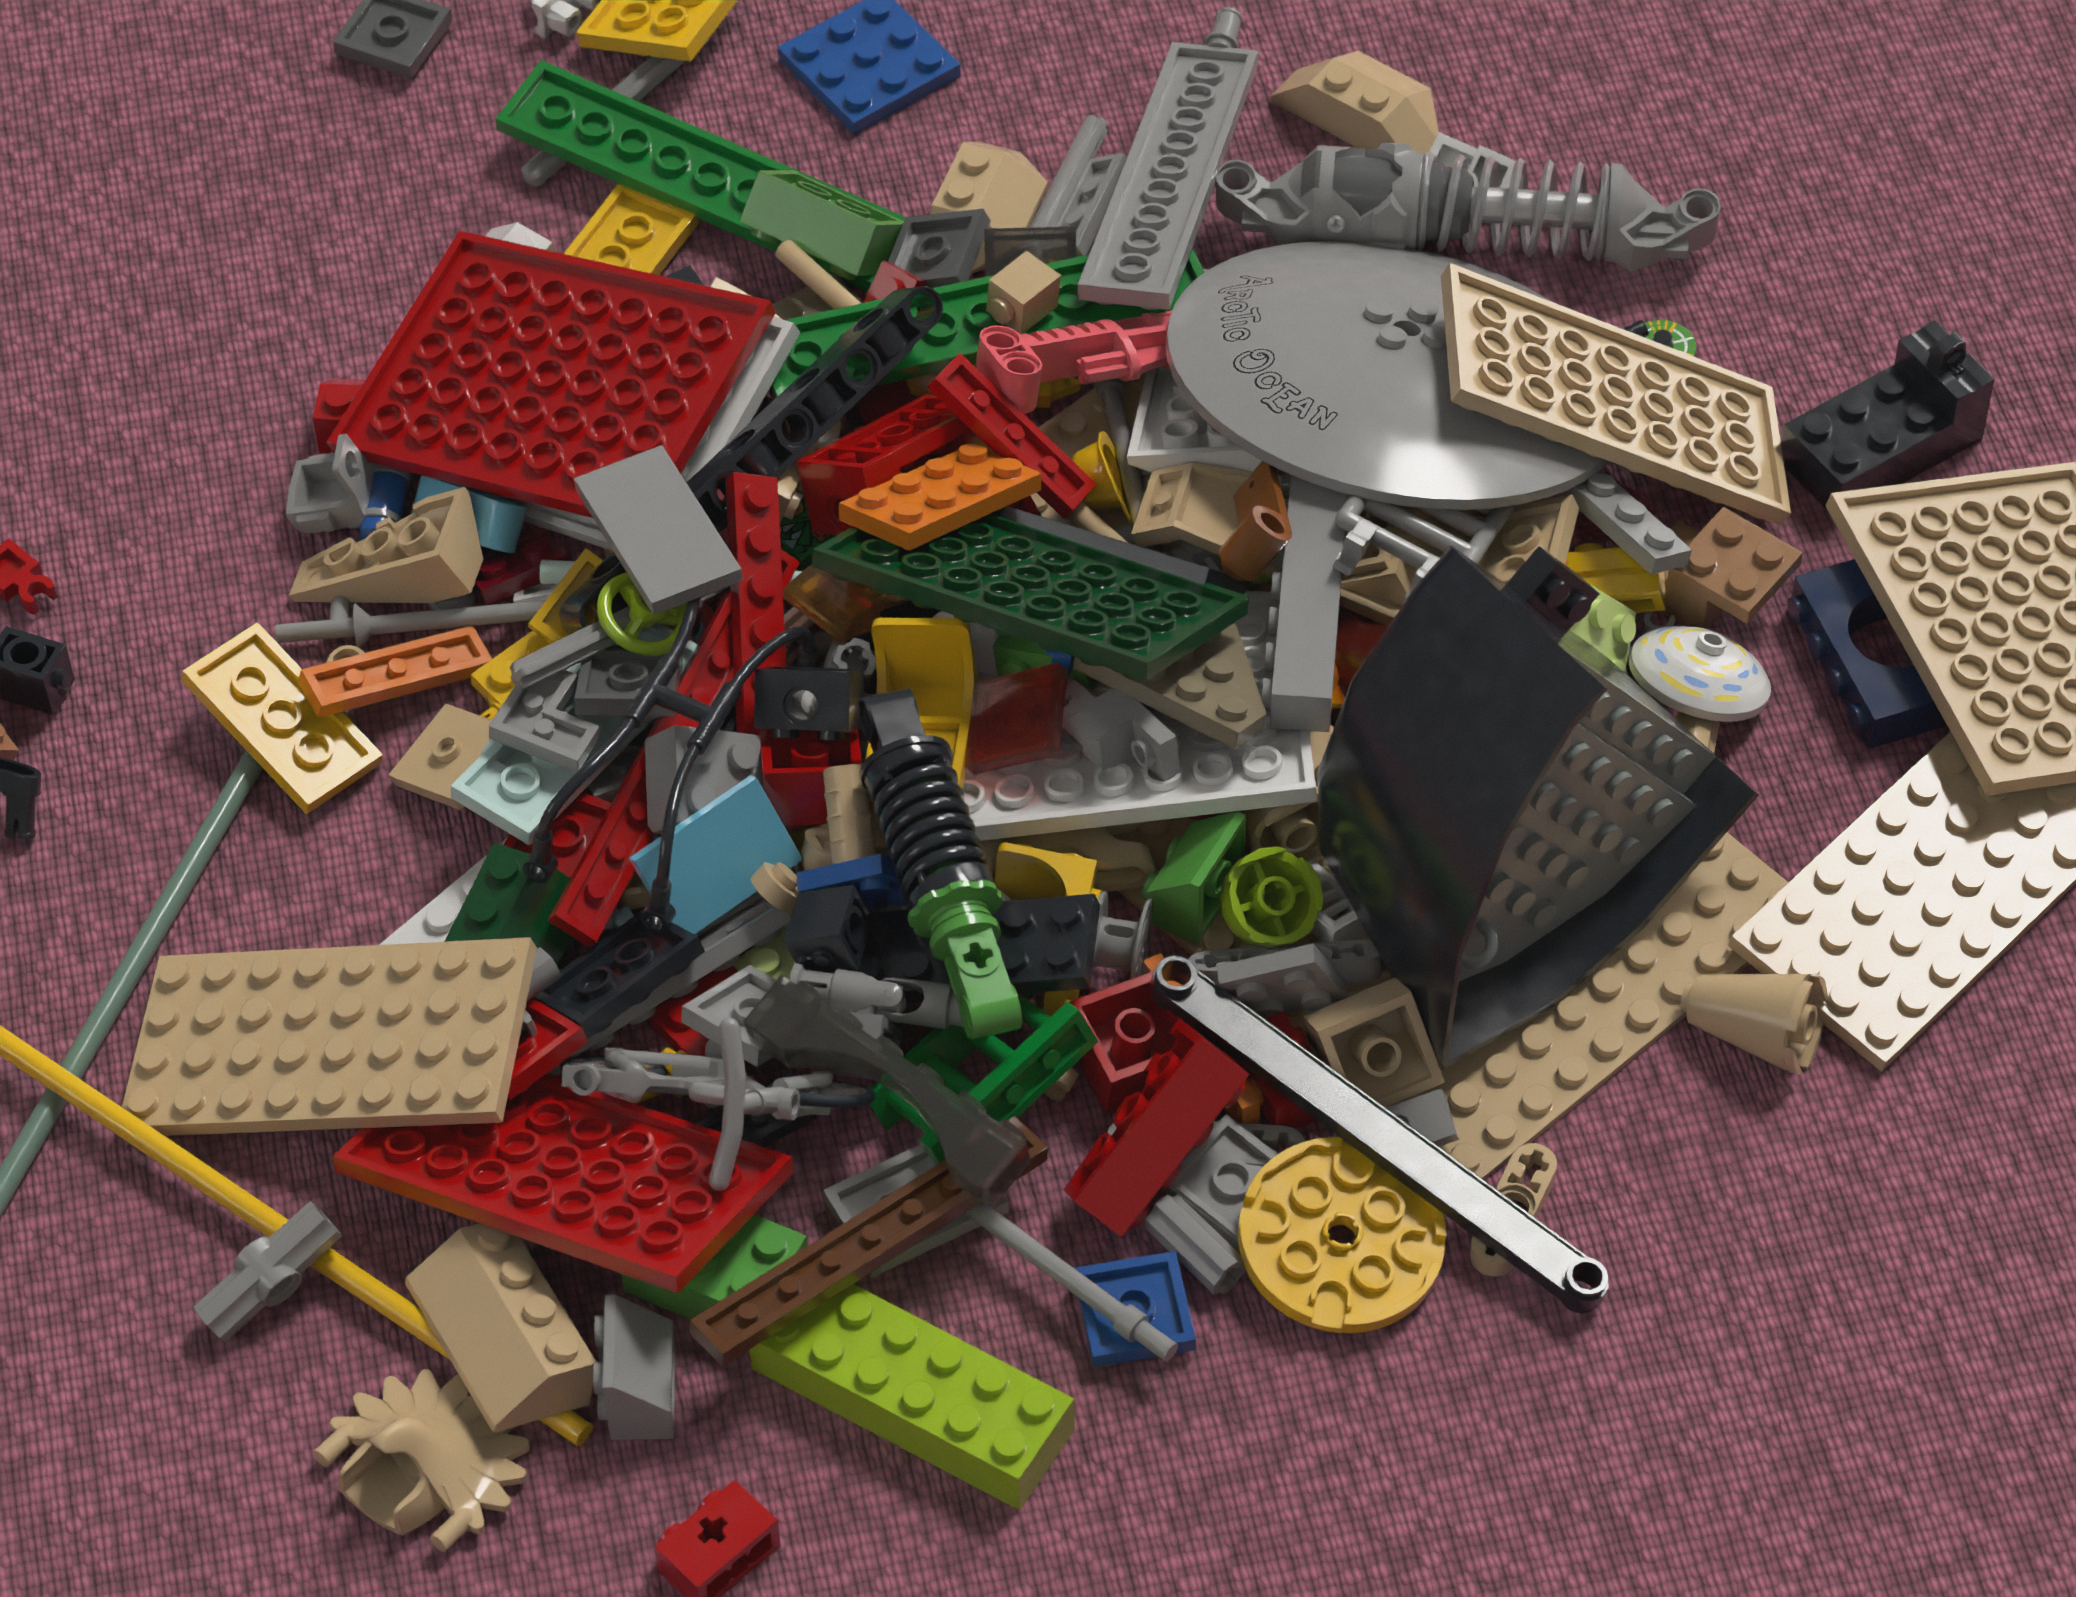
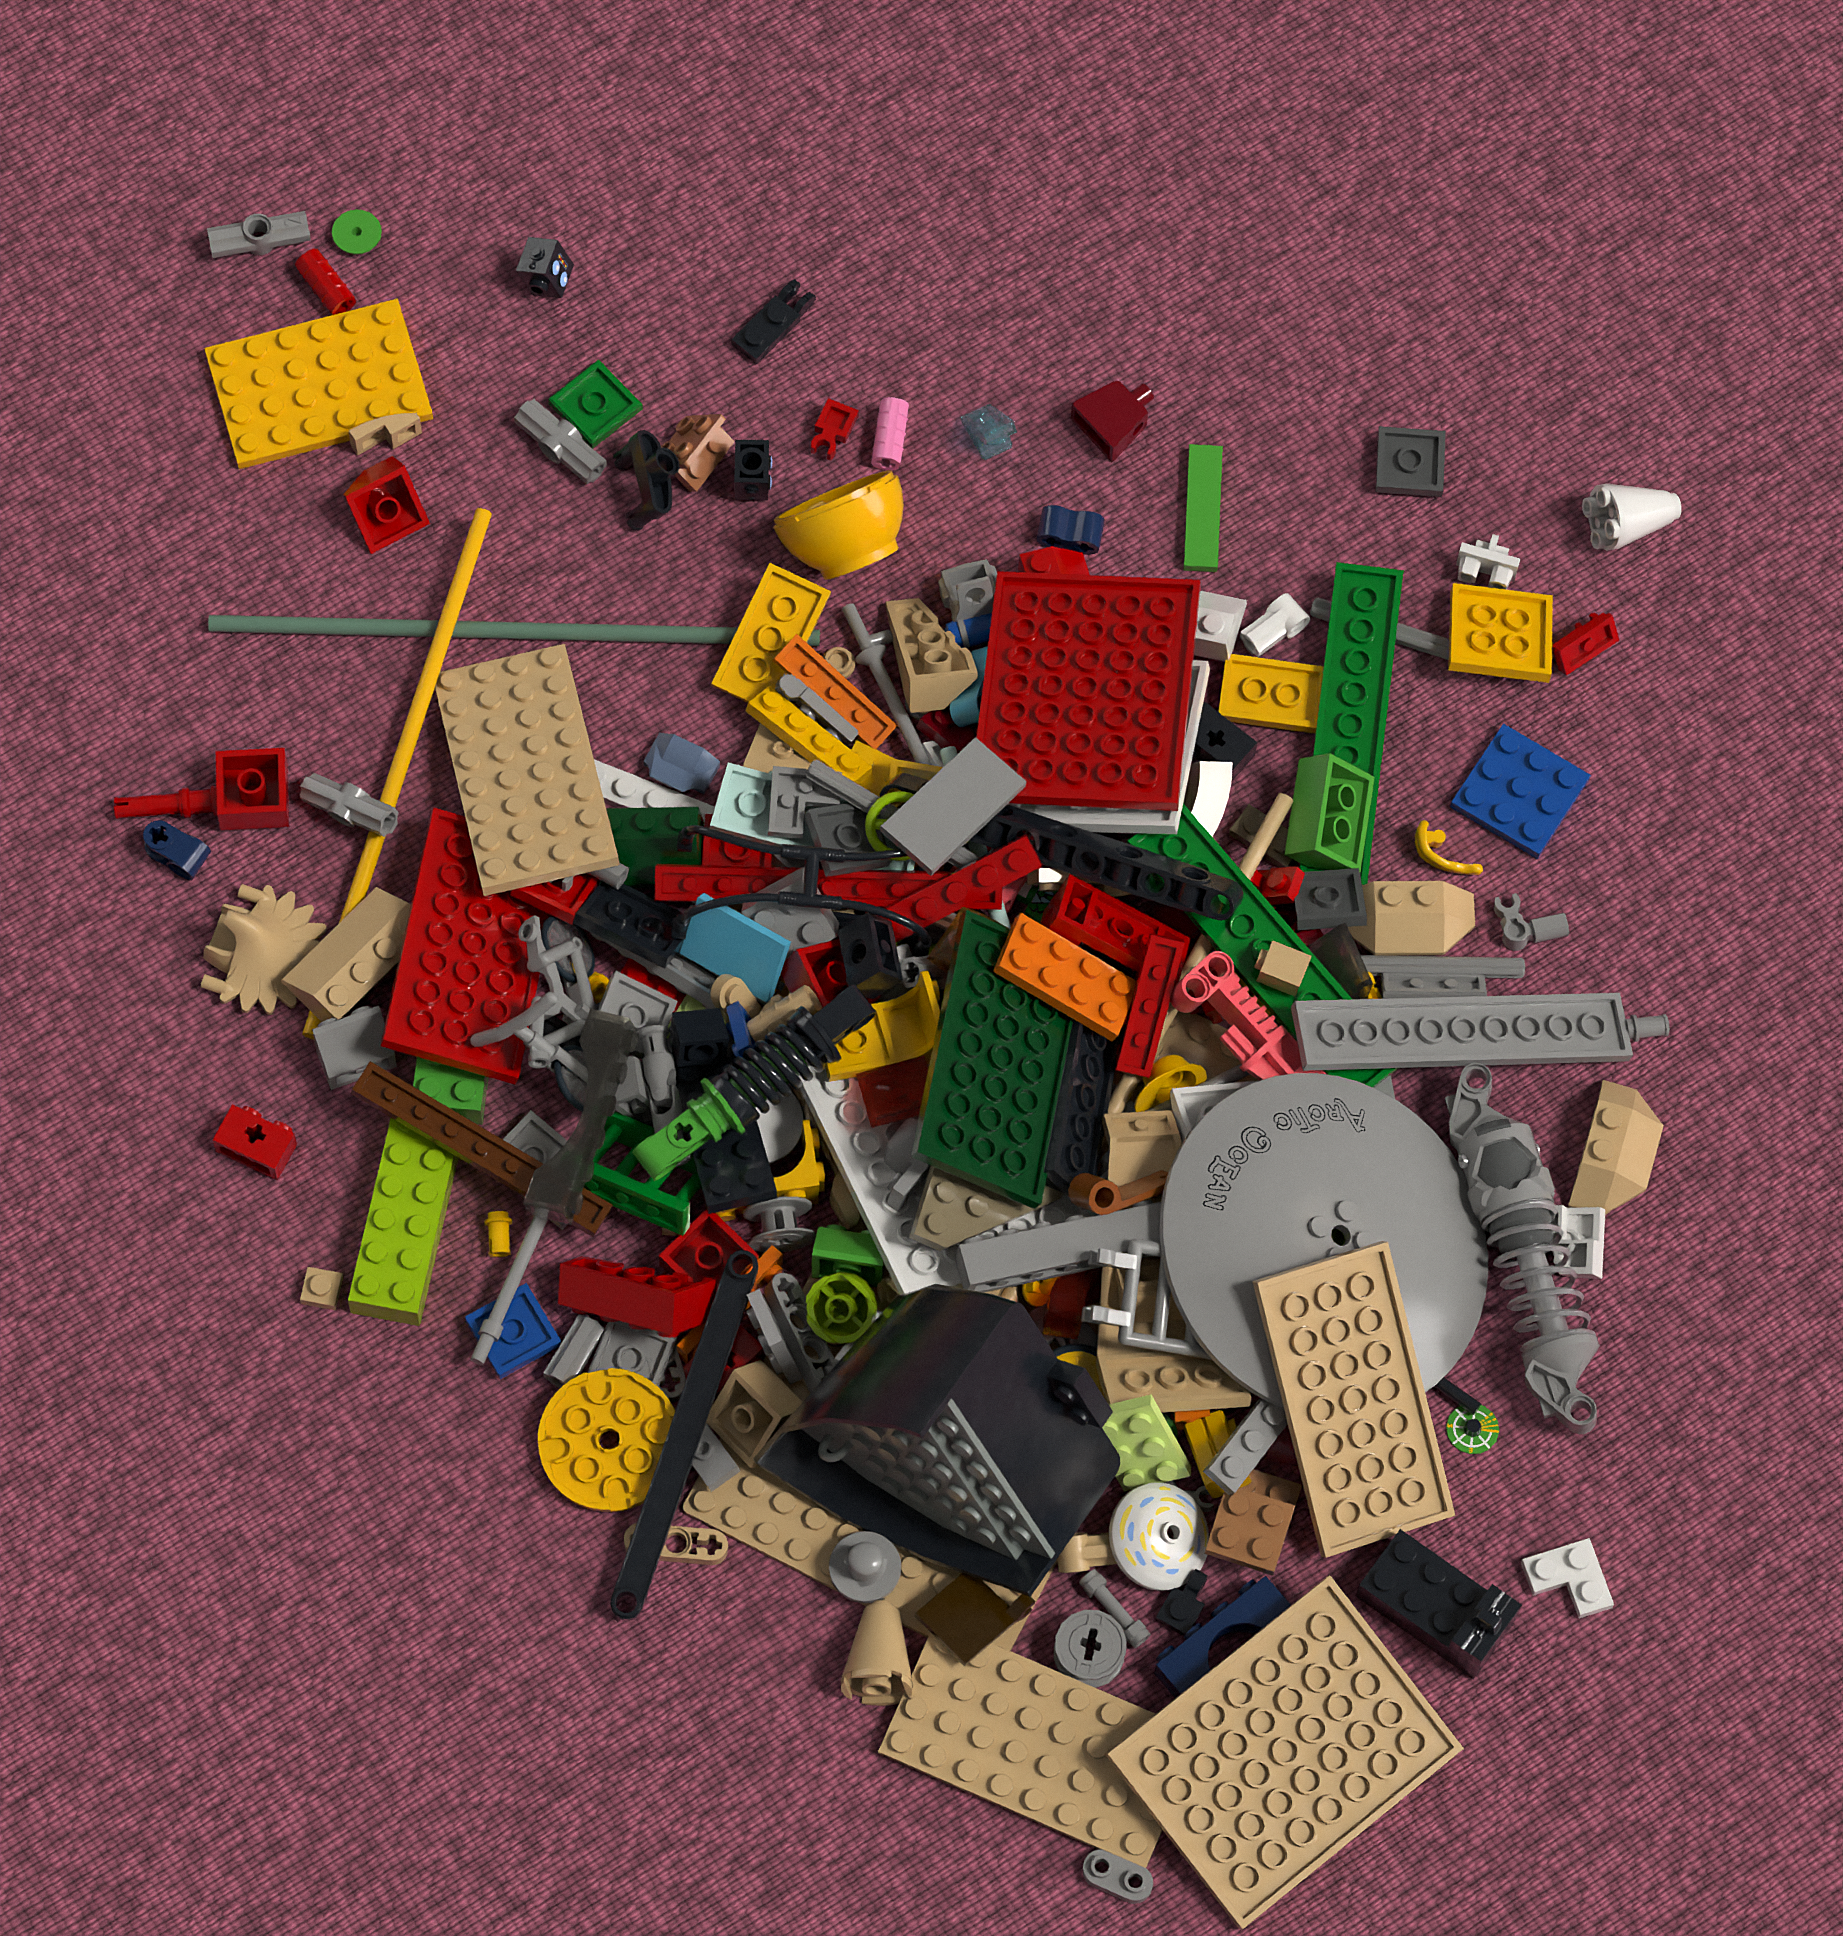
camera: 65 degrees right, 15 degrees up
(59, 519) = (890, 433): none -> bright pink axle
(114, 414) = (989, 430): none -> clear light blue slope
(150, 1490) = (184, 803): none -> red pin
(171, 289) = (1112, 416): none -> dark red torso
(172, 574) = (845, 525): none -> yellow piece
(180, 1387) = (252, 788): none -> red brick
(221, 1519) = (179, 853): none -> dark blue piece
(295, 376) = (1070, 529): none -> dark blue axle
(340, 244) = (1203, 508): none -> bright green tile
(396, 879) = (681, 763): none -> sand blue slope
(409, 697) = (816, 708): none -> light grey hinge
(434, 718) = (806, 735): none -> yellow plate
(536, 207) = (1281, 620): none -> white piece
(896, 164) = (1426, 839): none -> yellow piece
(971, 1531) = (321, 1288): none -> tan plate
(984, 1285) = (498, 1233): none -> yellow pin
(1048, 113) = (1518, 932): none -> light grey bar
(1630, 995) = (865, 1567): none -> light grey plate
(1744, 892) = (970, 1616): none -> dark brown flag
(1795, 689) = (1182, 1607): none -> black plate
(1812, 745) = (1094, 1585): none -> light grey bar
(1821, 791) = (1108, 1648): none -> light grey piece
(1879, 299) = (1570, 1566): none -> white plate

